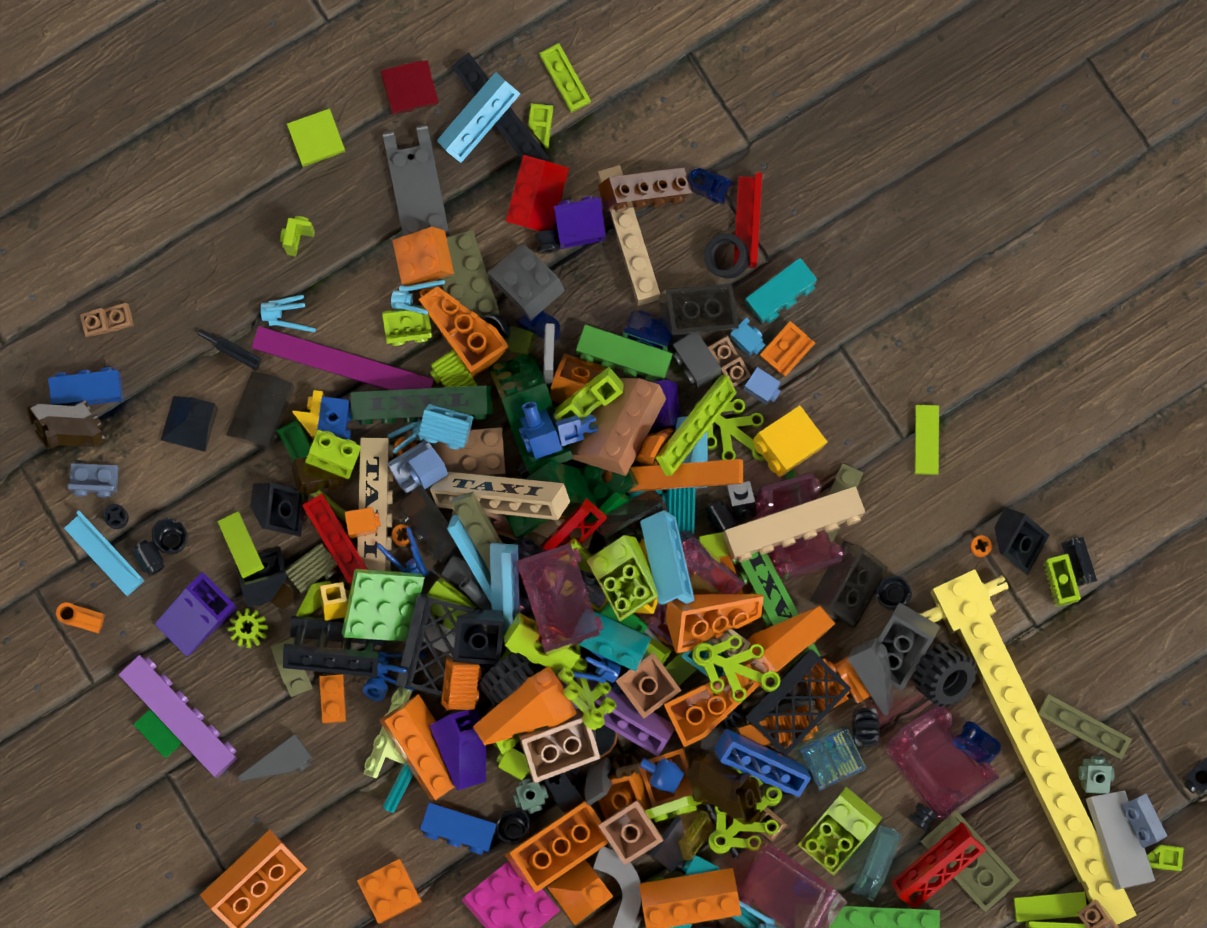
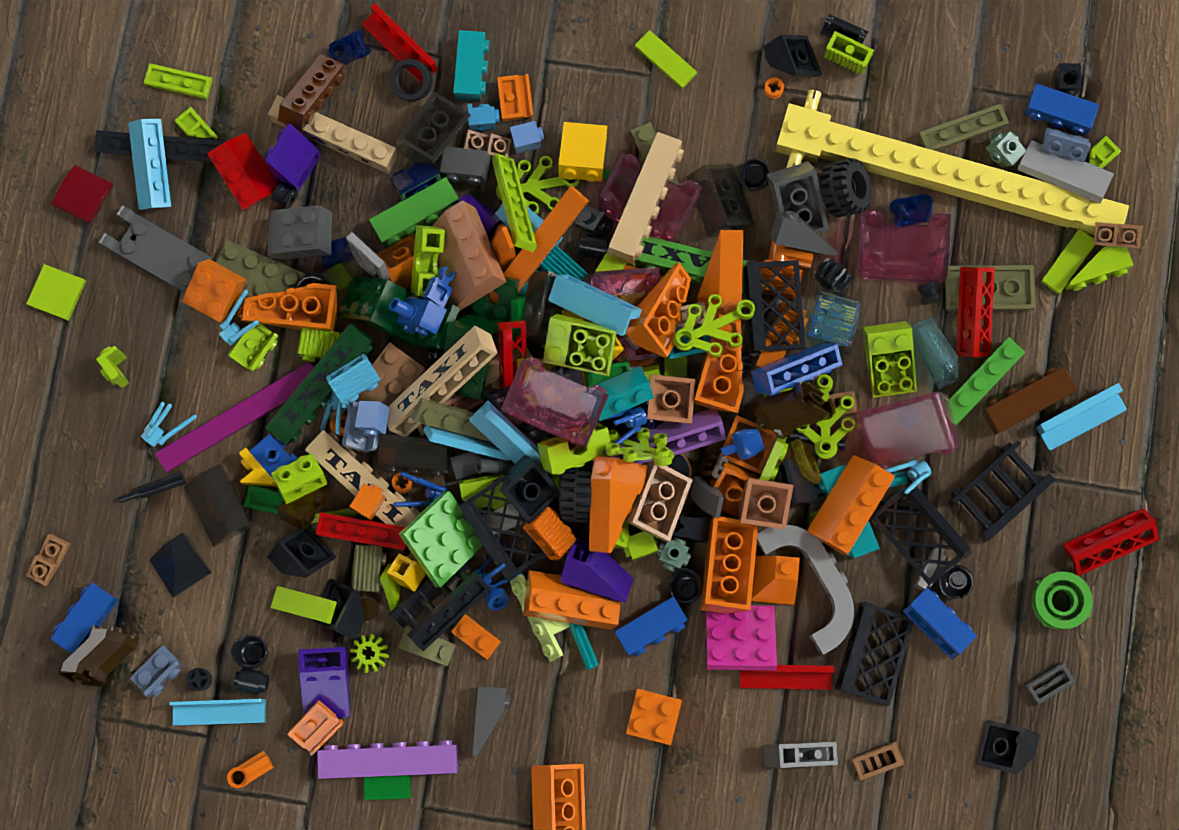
camera: 45 degrees left, 0 degrees up
(155, 637) = (315, 727): none -> orange plate
(1171, 792) = (1061, 109): none -> blue brick

